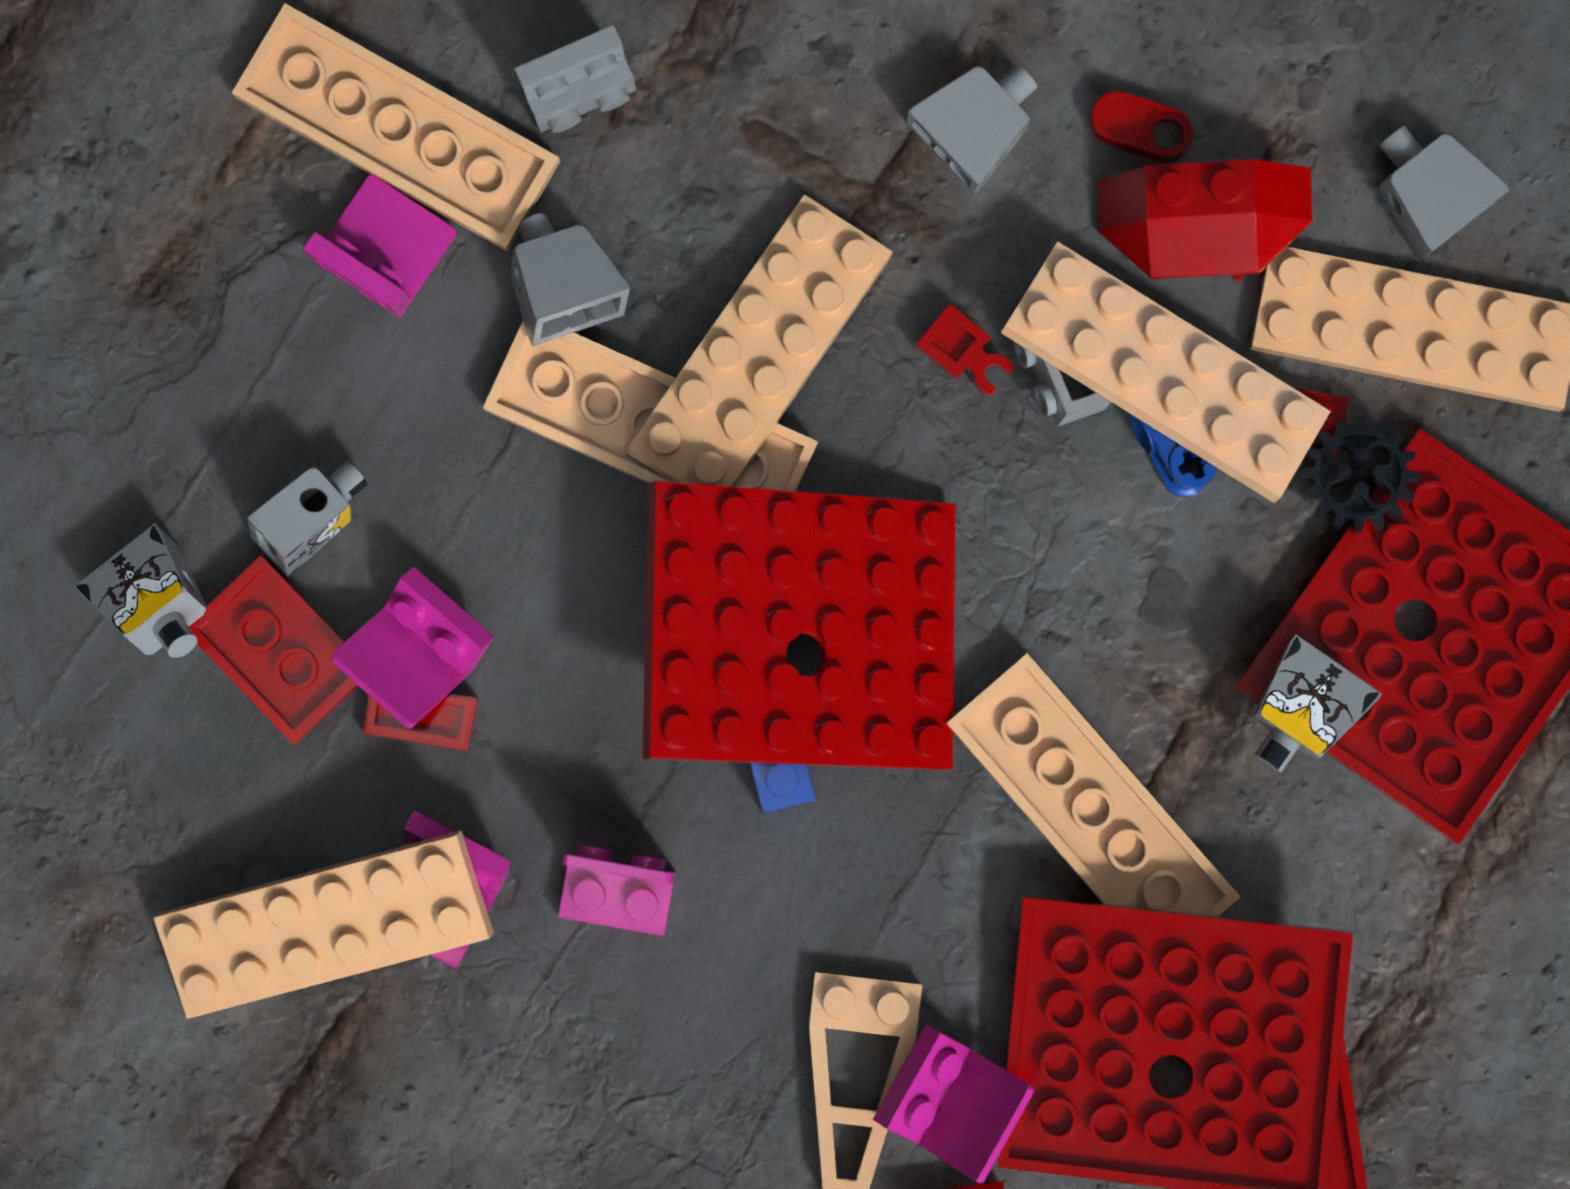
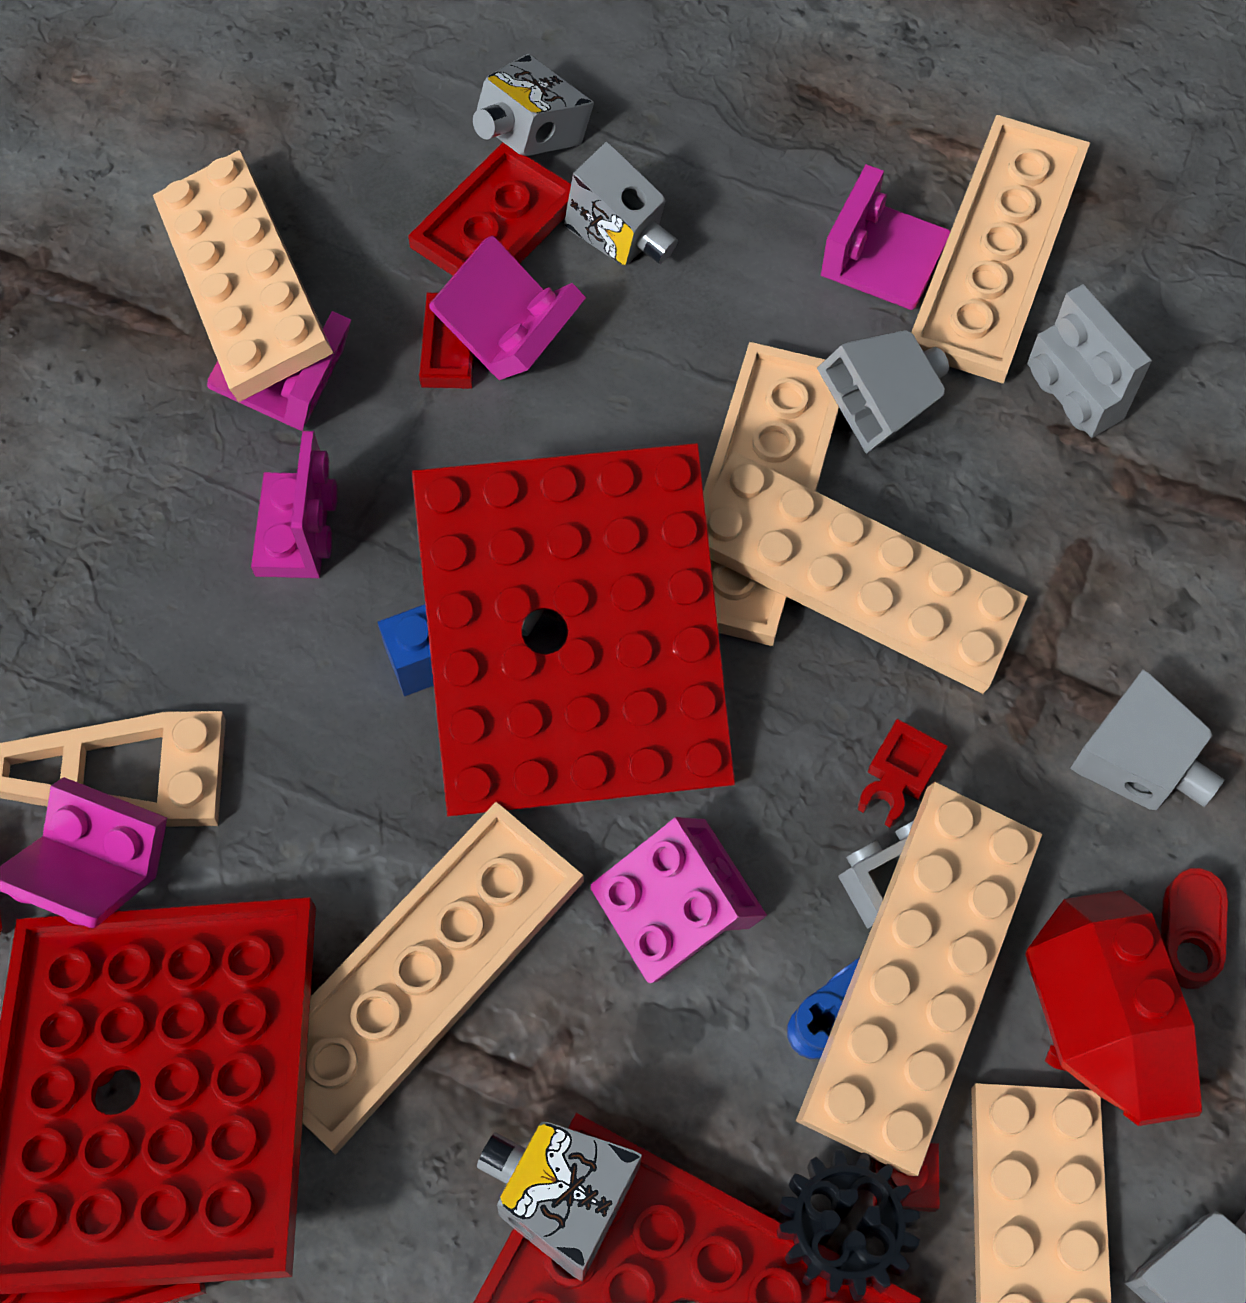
camera: 85 degrees right, 20 degrees down
(1055, 571) = (675, 896): none -> bracket

